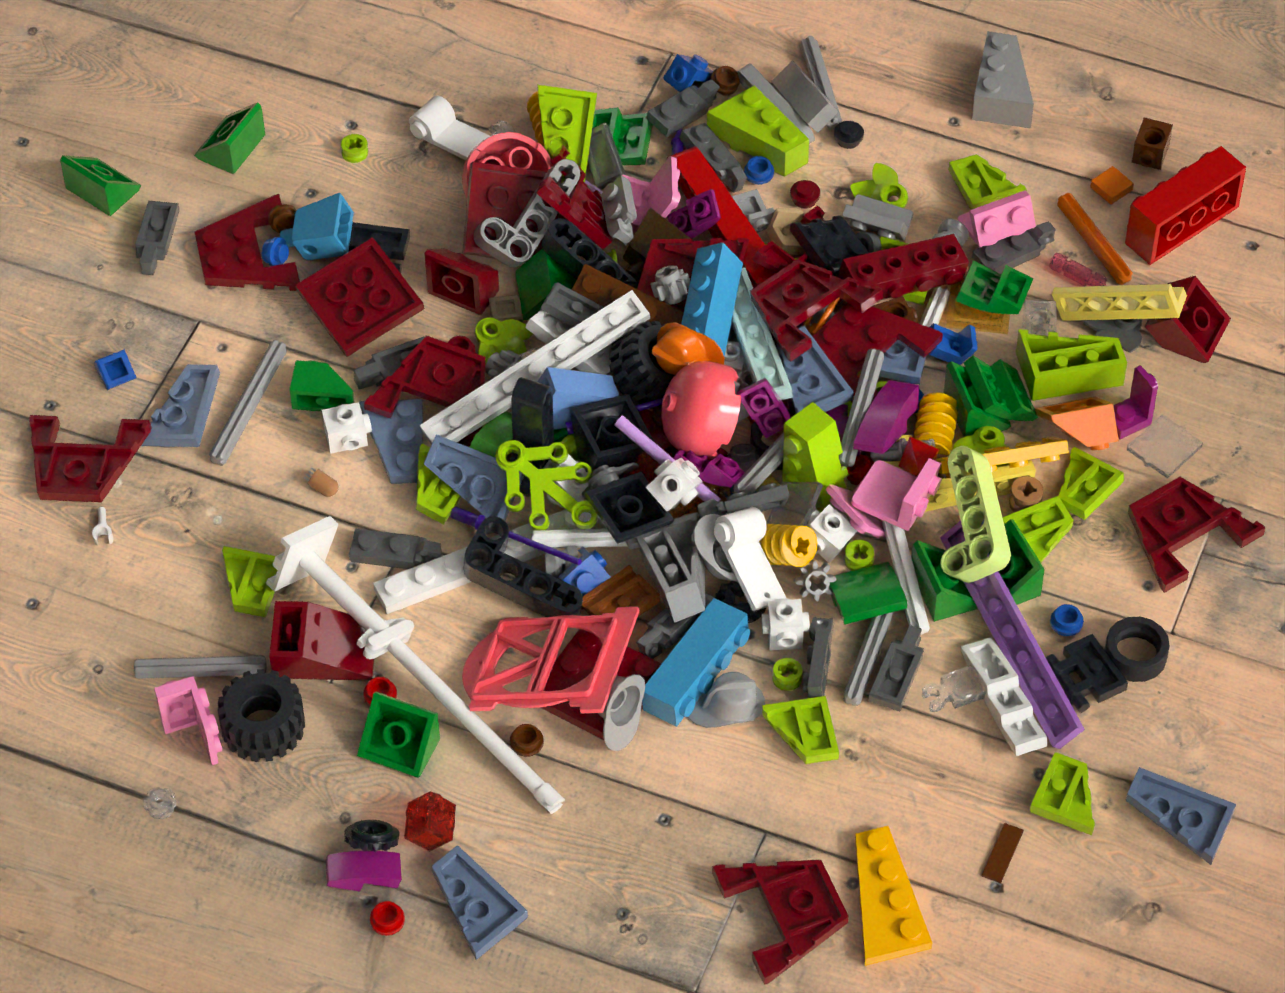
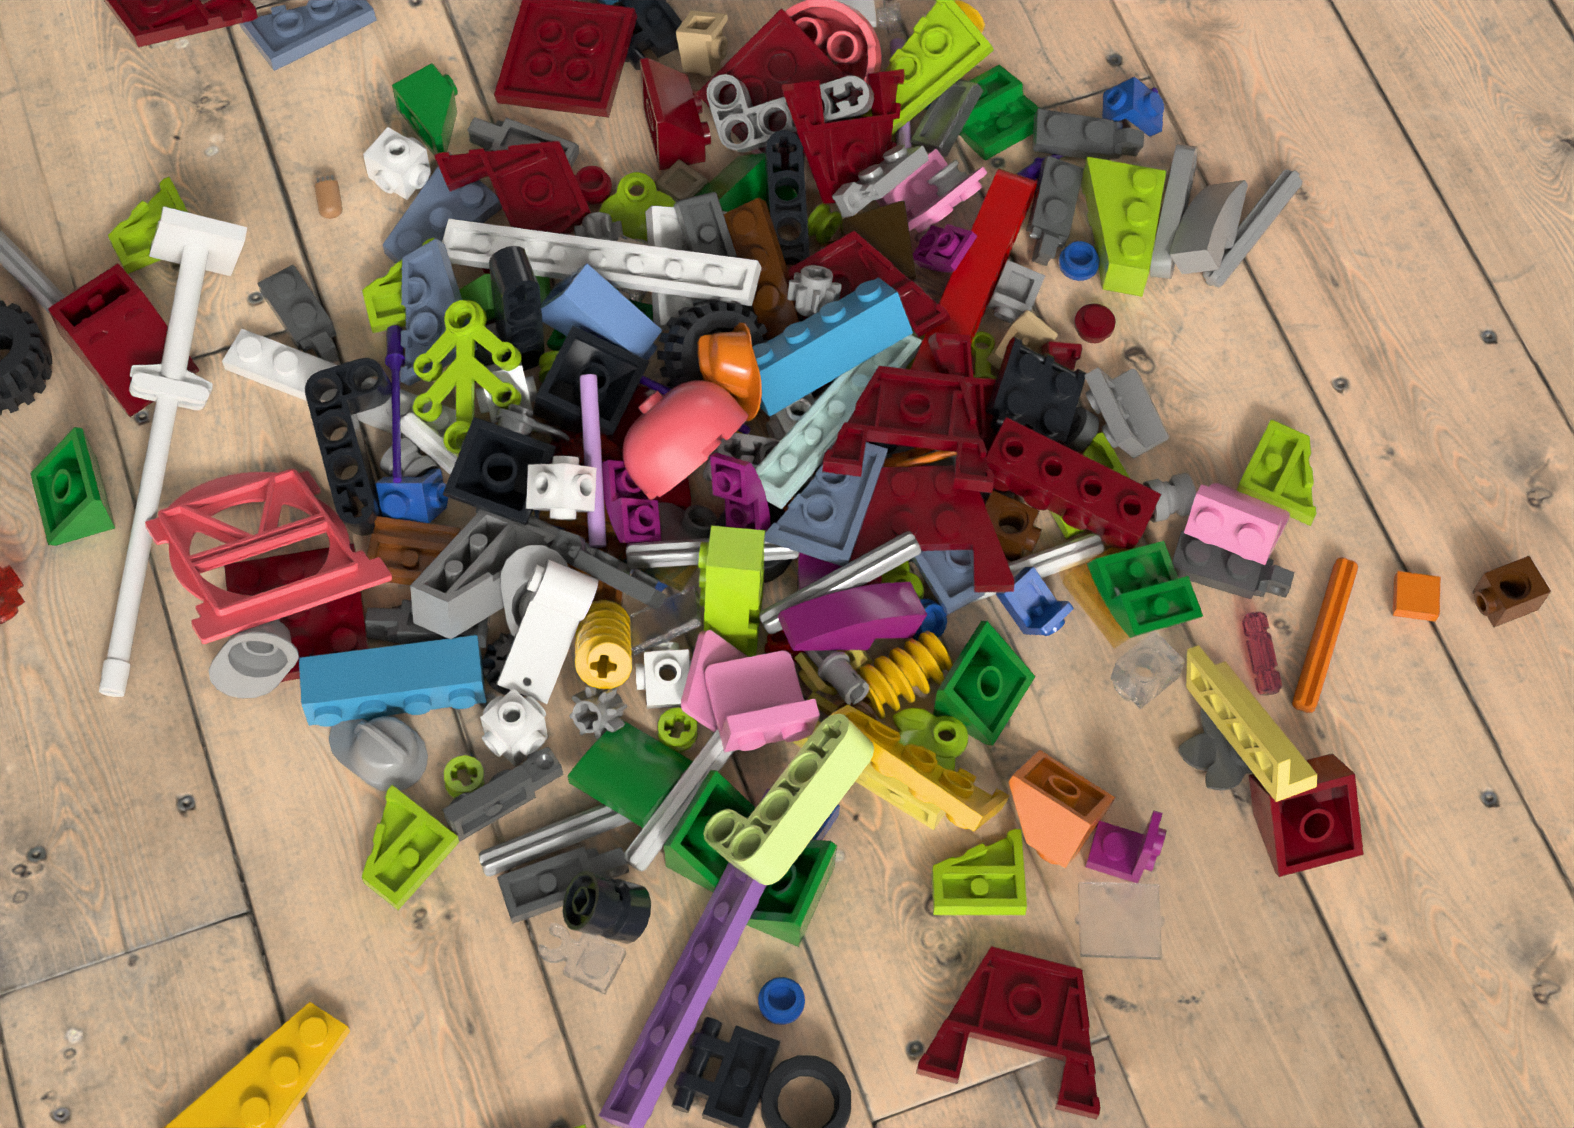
camera: 45 degrees right, 10 degrees up
(102, 527) = (107, 75): white hand -> none
(247, 403) = (364, 68): light grey axle -> none
(381, 685) = (117, 435): red plate -> none
(427, 225) = (702, 42): none -> tan brick
(526, 740) = (169, 604): reddish brown plate -> none
(649, 183) = (947, 178): none -> light grey bush
(727, 79) = (1160, 144): reddish brown plate -> none
(800, 903) = (173, 1016): dark red wing -> none
(848, 134) = (1213, 302): black plate -> none
(882, 186) = (1173, 384): lime plate -> none
(916, 456) = (829, 687): red slope -> none
(942, 651) = (606, 907): none -> black wheel
(1000, 390) = (1018, 698): green slope -> none
(1002, 84) = (1428, 385): light grey wedge -> none
(1004, 697) = (619, 1014): white slope -> none
(1025, 493) = (902, 841): medium nougat wheel -> none
(1043, 525) = (872, 879): lime wing -> none
(1069, 365) = (1117, 739): lime wedge -> none
(1185, 205) = (1455, 688): red brick -> none

